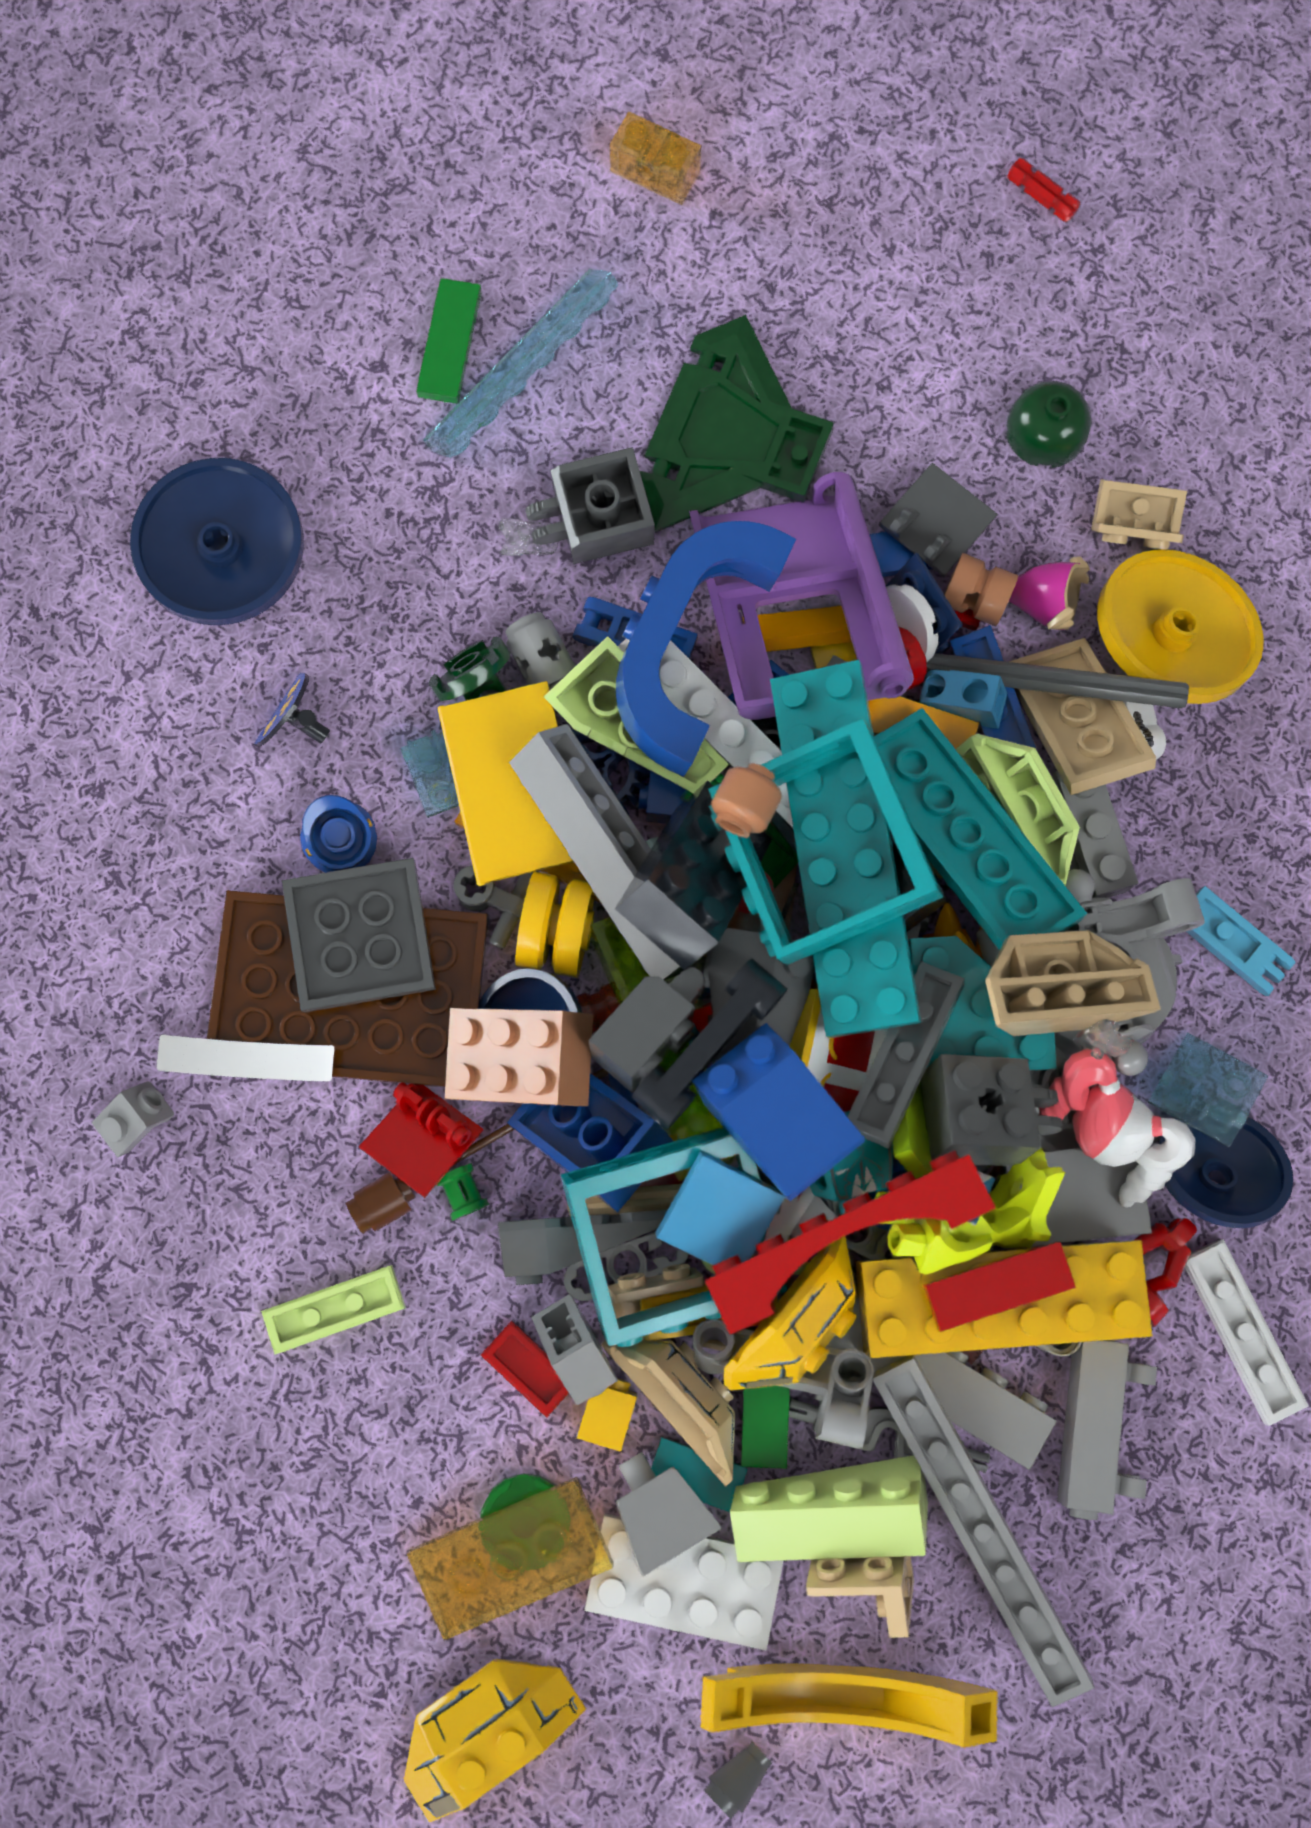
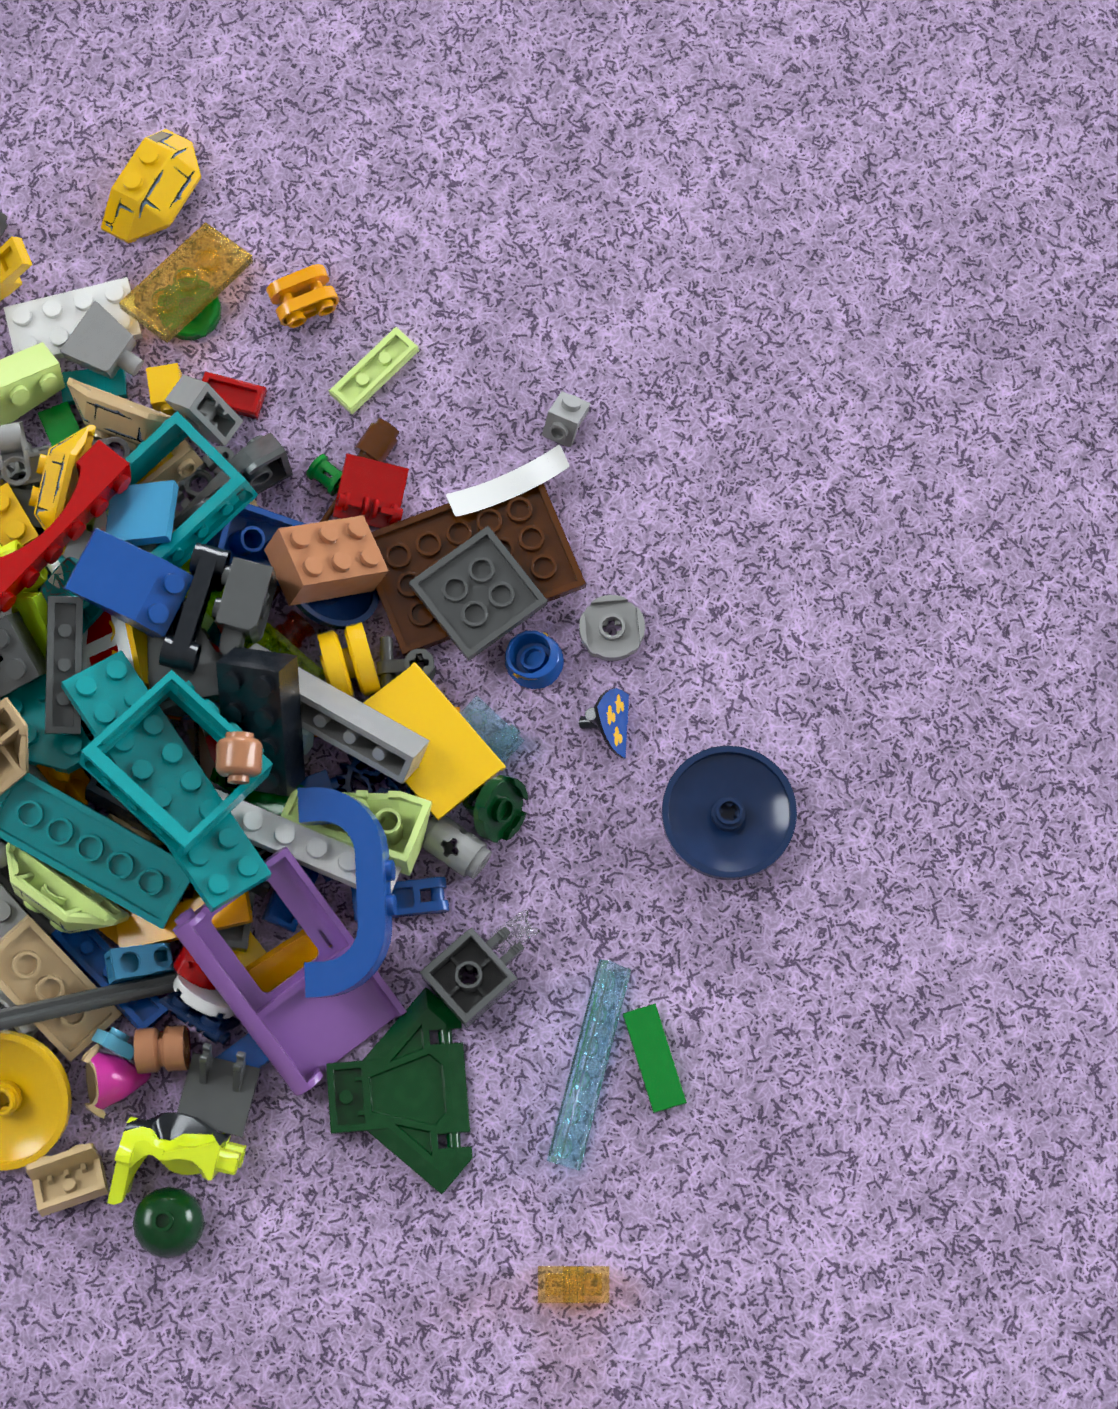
camera: 155 degrees right, 5 degrees down
(218, 803) = (624, 614): none -> light grey plate
(351, 1439) = (302, 295): none -> light orange brick
(989, 463) = (179, 1143): none -> neon yellow hips
(1028, 628) = (114, 1041): none -> medium azure plate

